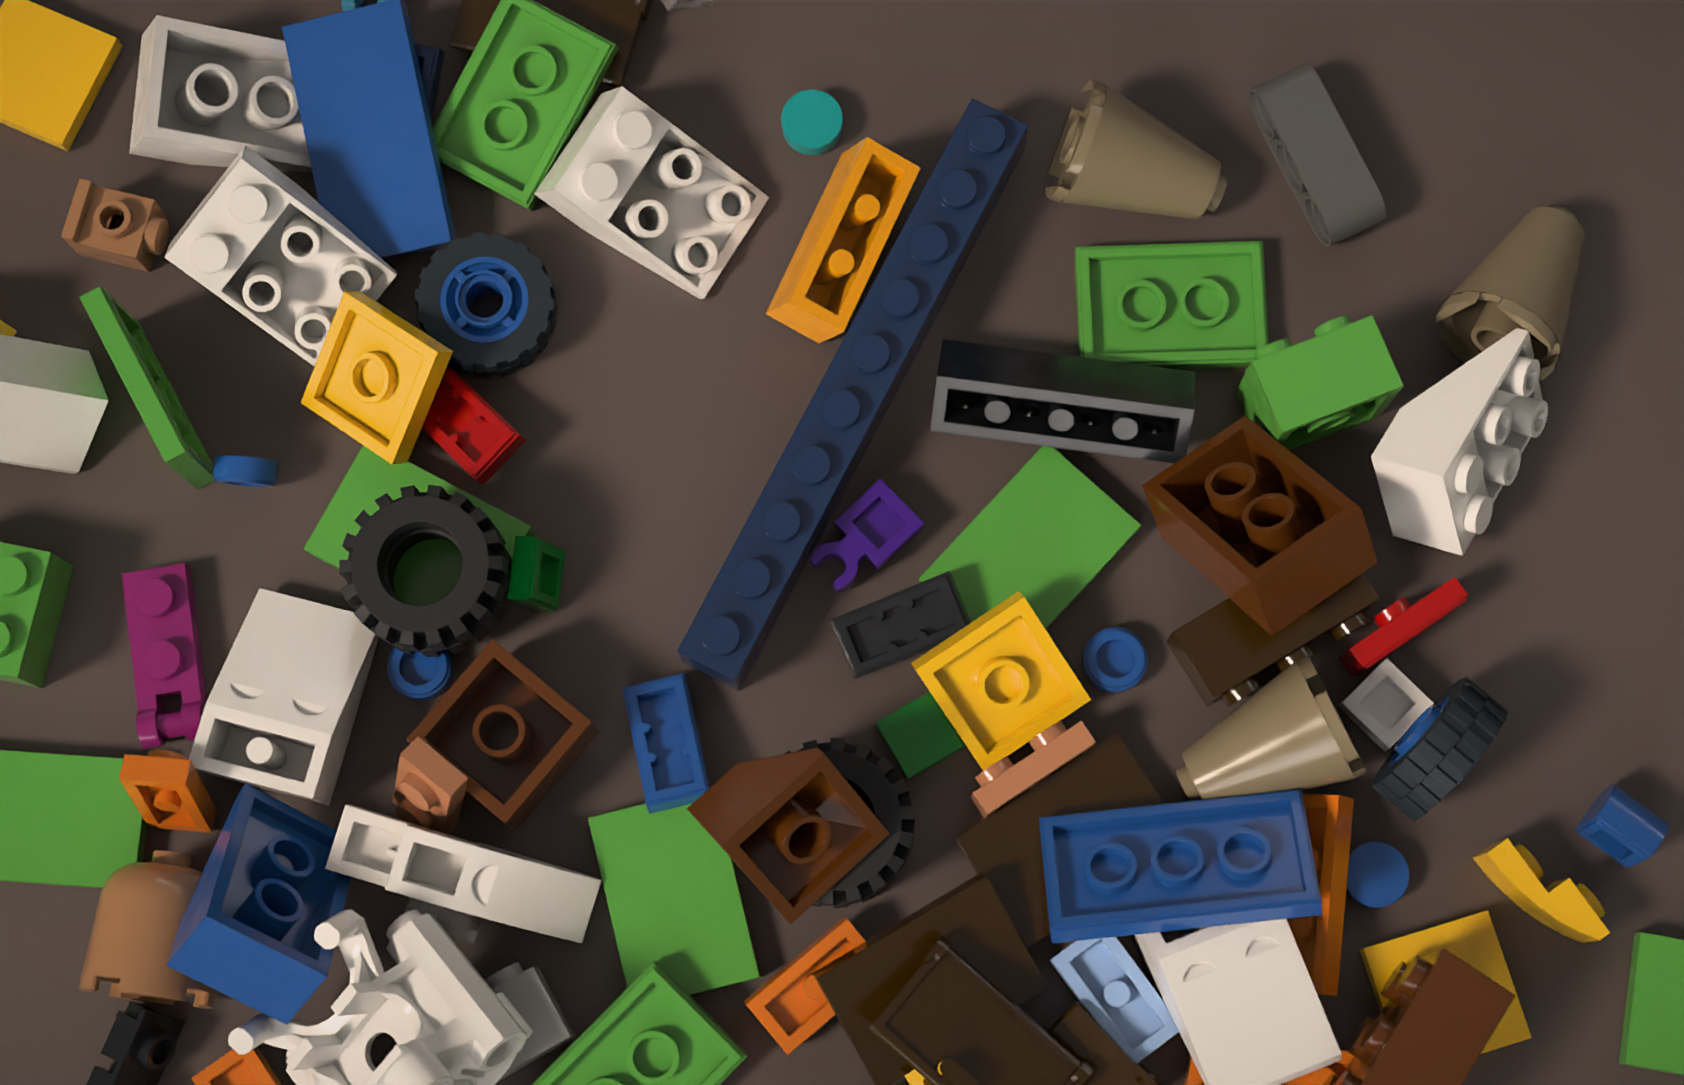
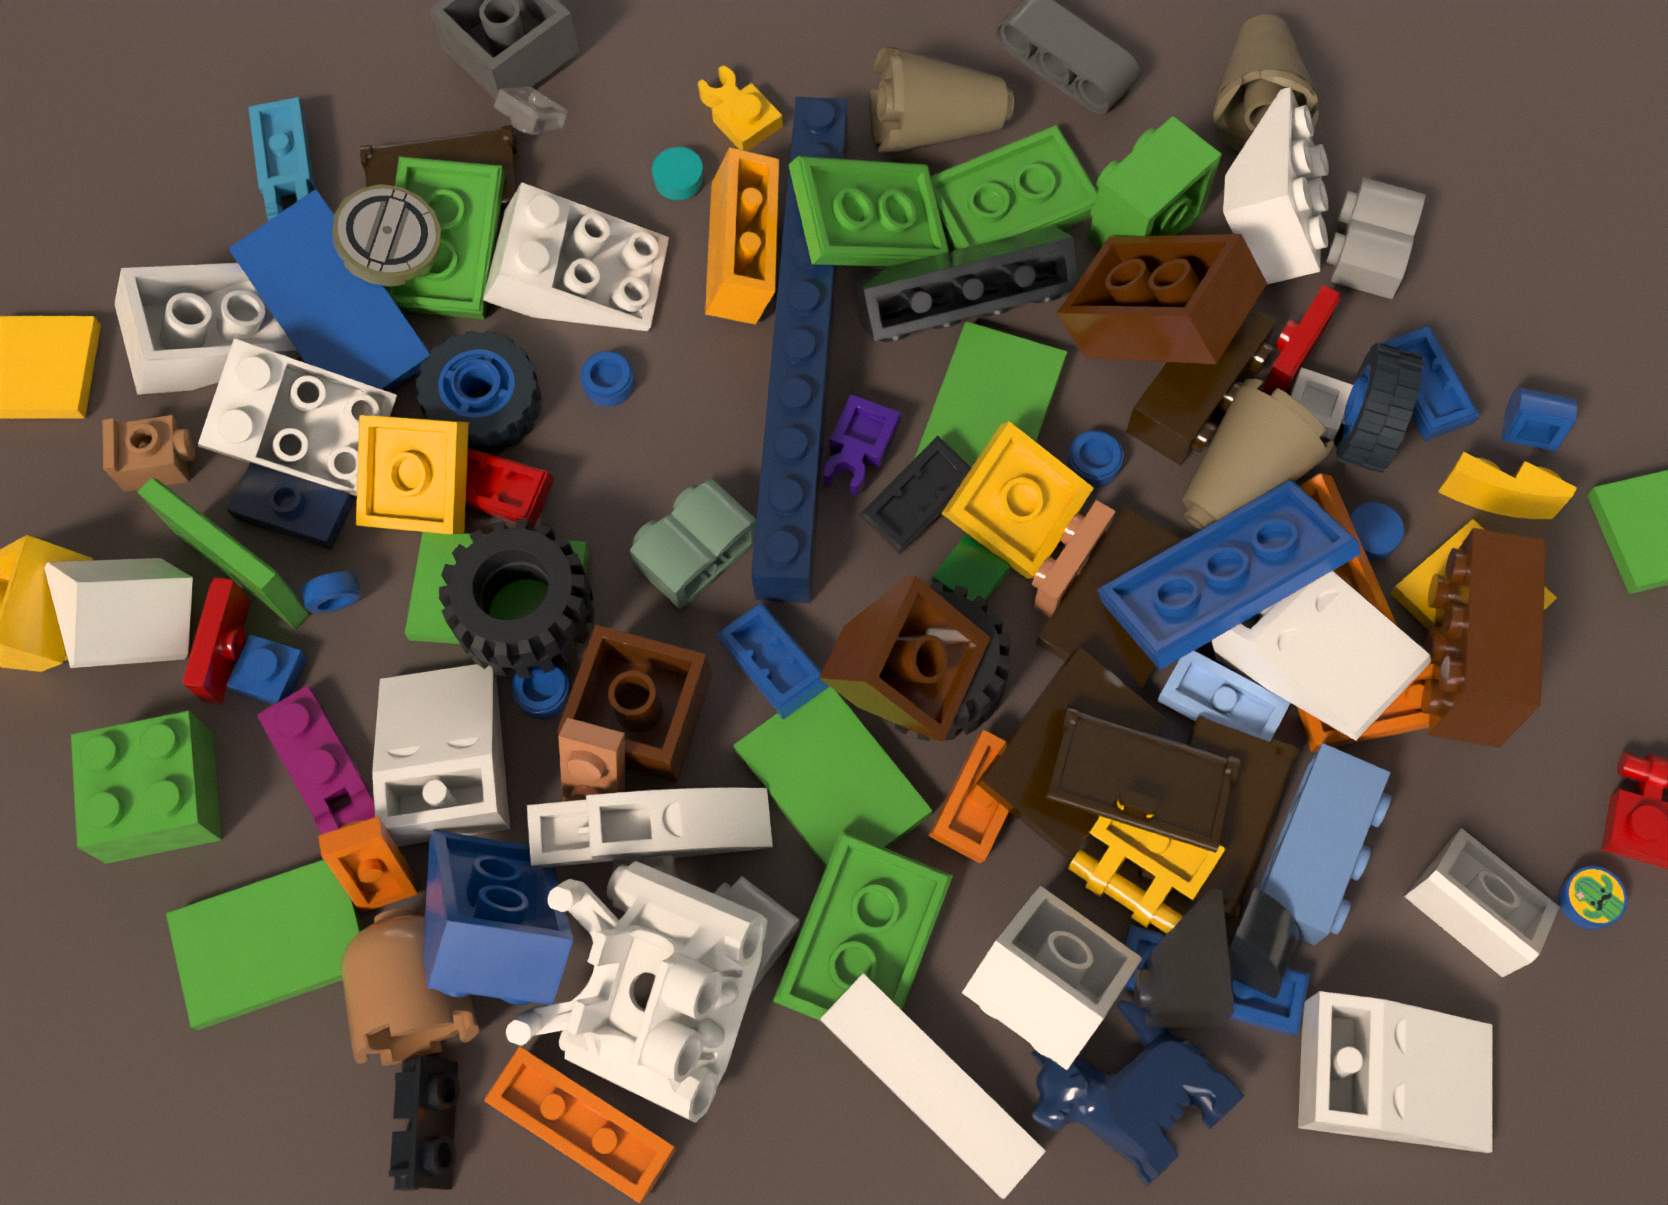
camera: 25 degrees left, 10 degrees down
(110, 478) = (217, 641): none -> red plate
(150, 526) = (266, 670): none -> blue plate
(242, 351) = (290, 505): none -> dark blue plate
(455, 84) = (386, 235): none -> tile
(536, 574) = (607, 573): green tile -> none
(632, 341) = (607, 378): none -> blue tile
(640, 576) = (693, 542): none -> sand green brick
(917, 75) = (740, 114): none -> yellow plate
(990, 276) = (867, 211): none -> bright green tile
(1524, 751) = (1441, 399): none -> blue plate
(1553, 536) = (1376, 237): none -> light grey brick

